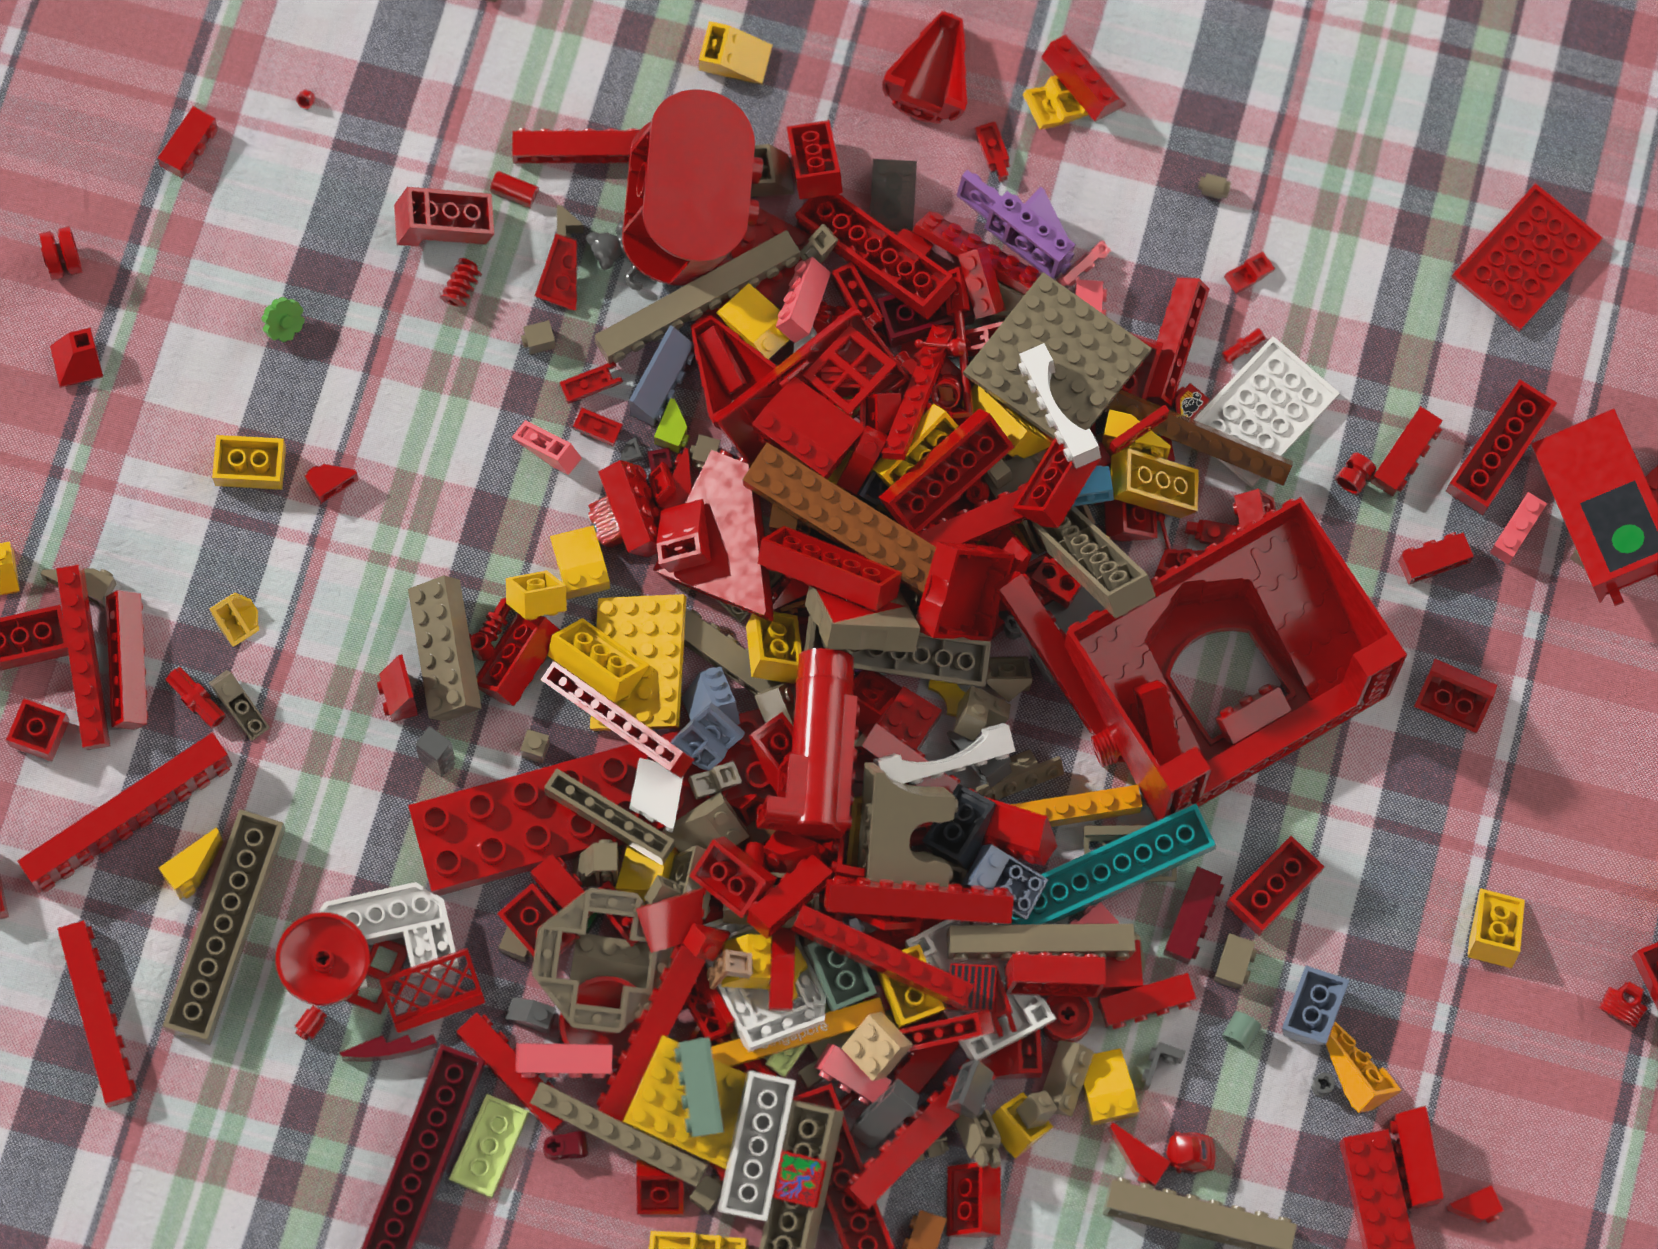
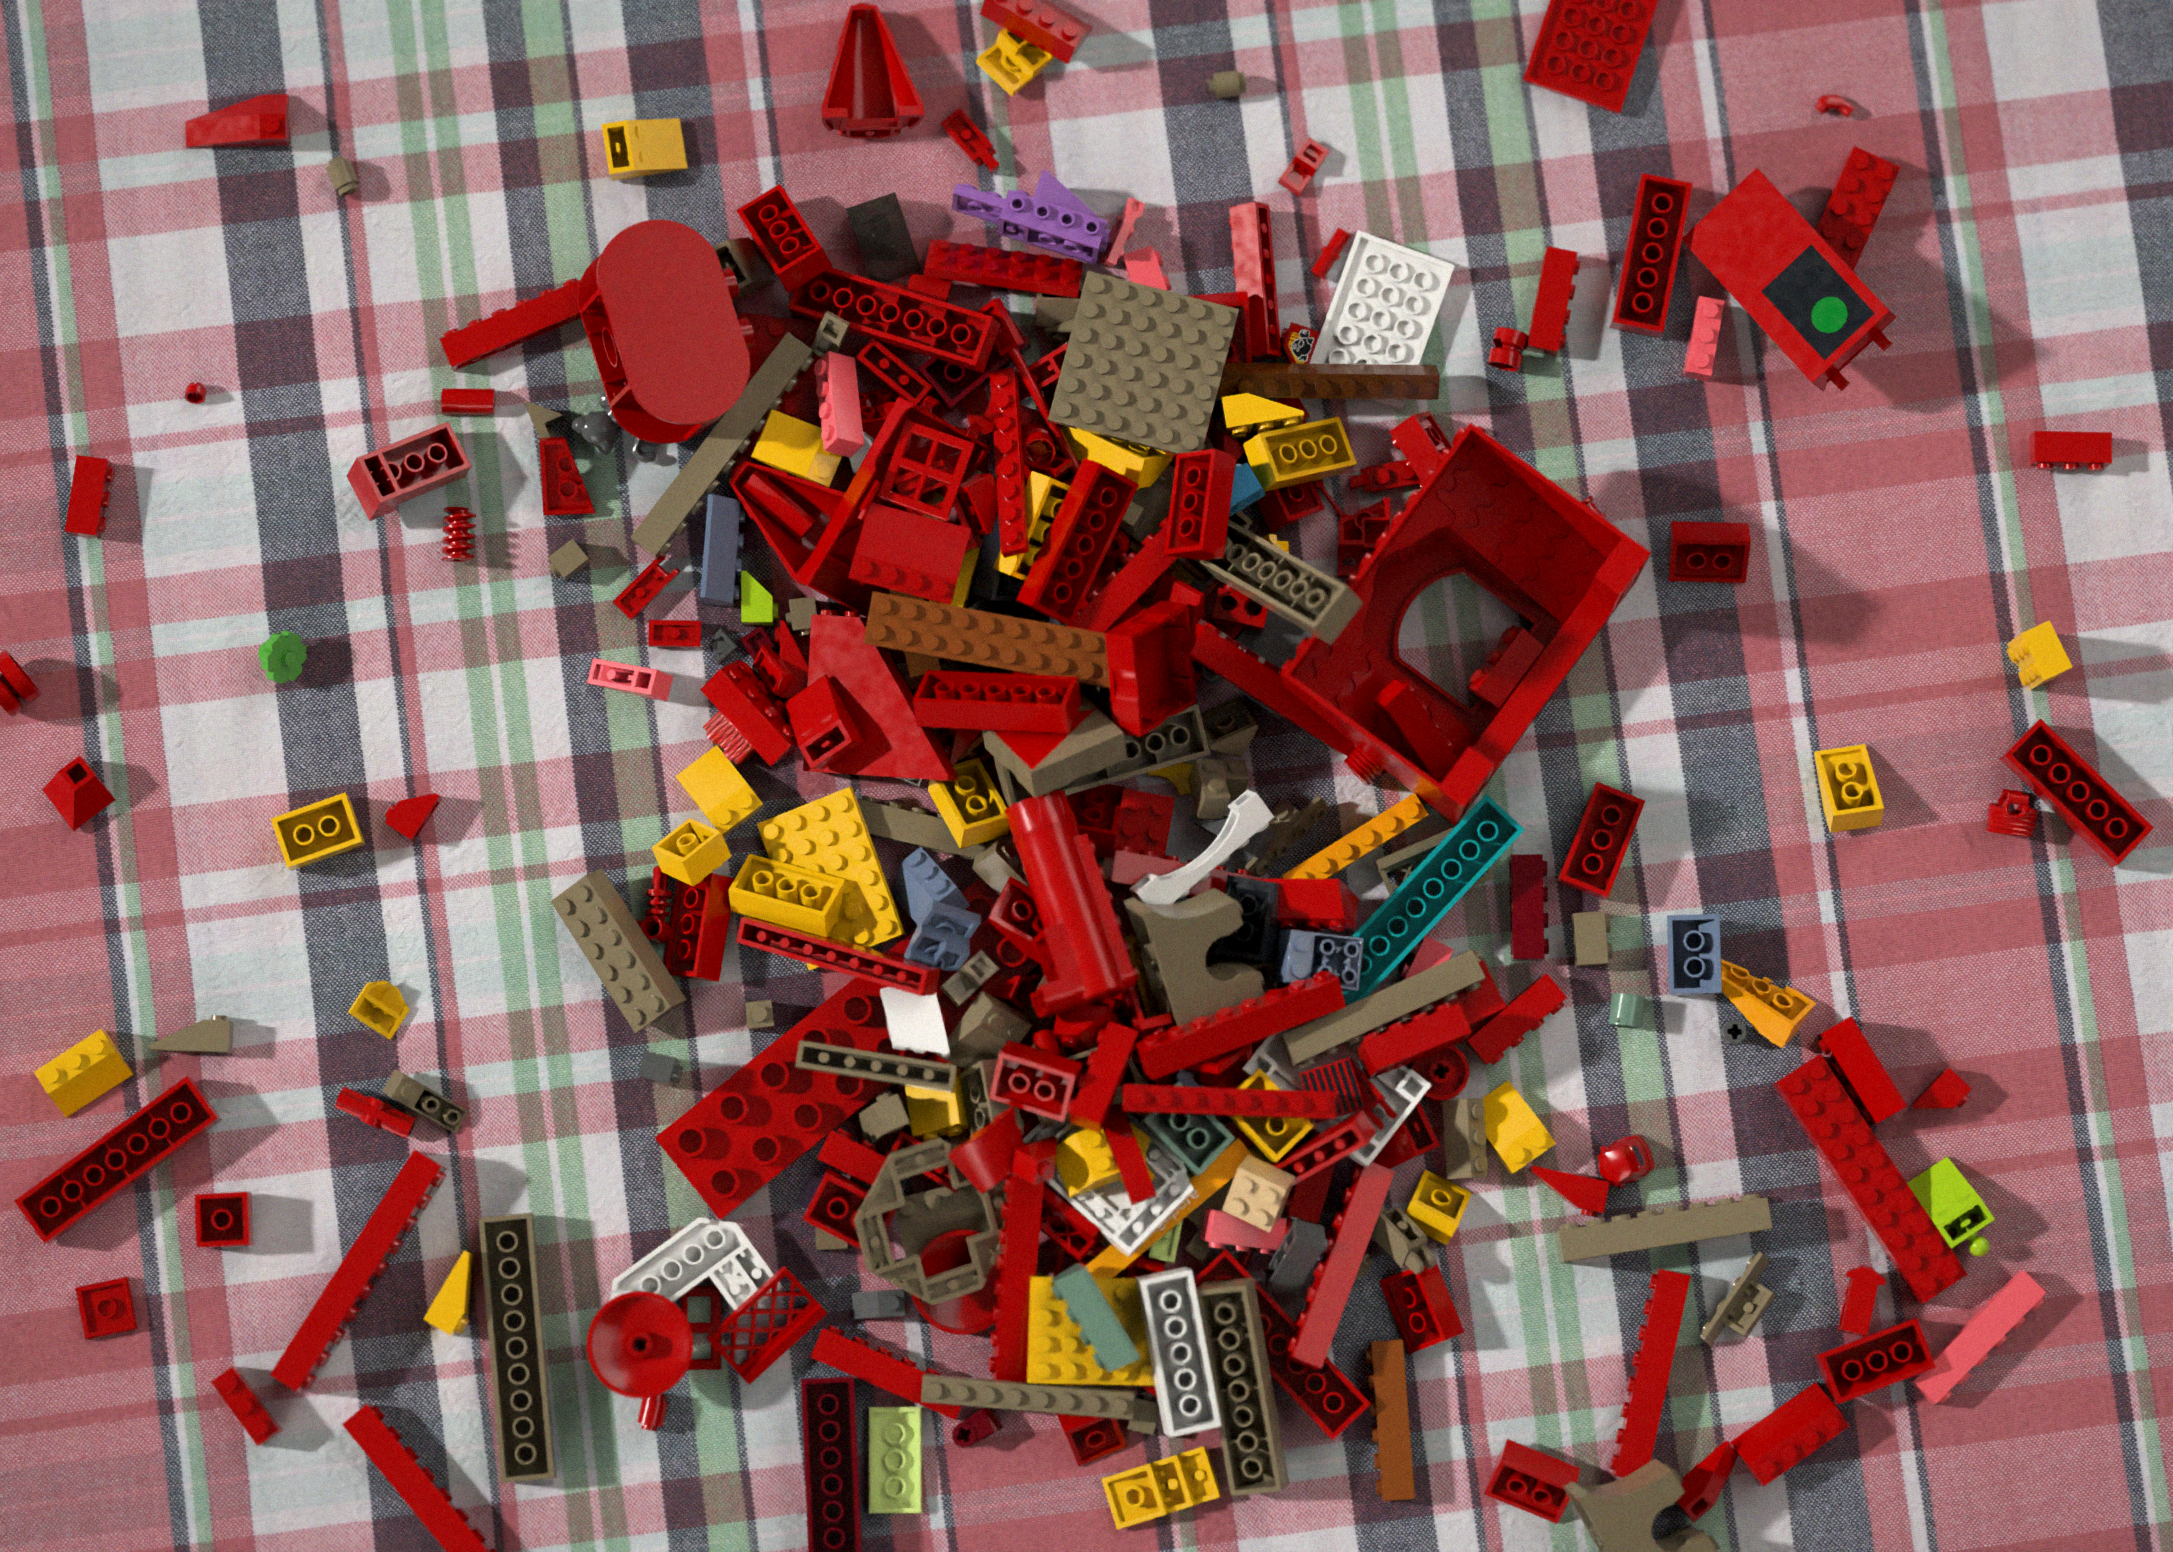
camera: 25 degrees left, 10 degrees up
(83, 657) = (237, 1122): red brick -> none
(126, 660) = (283, 1104): brick -> none
(379, 1050) = (737, 1407): dark red slope -> none
(397, 691) = (589, 1018): red slope -> none
(564, 1058) = (936, 1340): coral brick -> none
(662, 889) = (966, 1122): dark tan brick -> none
(731, 964) = (1073, 1176): medium nougat bracket -> none
(799, 1179) = (1238, 1369): tile -> none
(862, 459) = (981, 563): red slope -> none
(955, 347) = (1025, 392): red hinge -> none
(971, 1089) = (1375, 1199): dark grey slope -> none
(981, 282) = (1023, 305): red brick -> none
(1036, 1109) = (1449, 1186): dark tan brick -> none
(1078, 443) = (1211, 460): white arch -> none
(1139, 430) = (1264, 409): red tile -> none
(1169, 1054) = (1564, 1068): dark grey bracket -> none
(1435, 557) = (1627, 407): red brick -> none

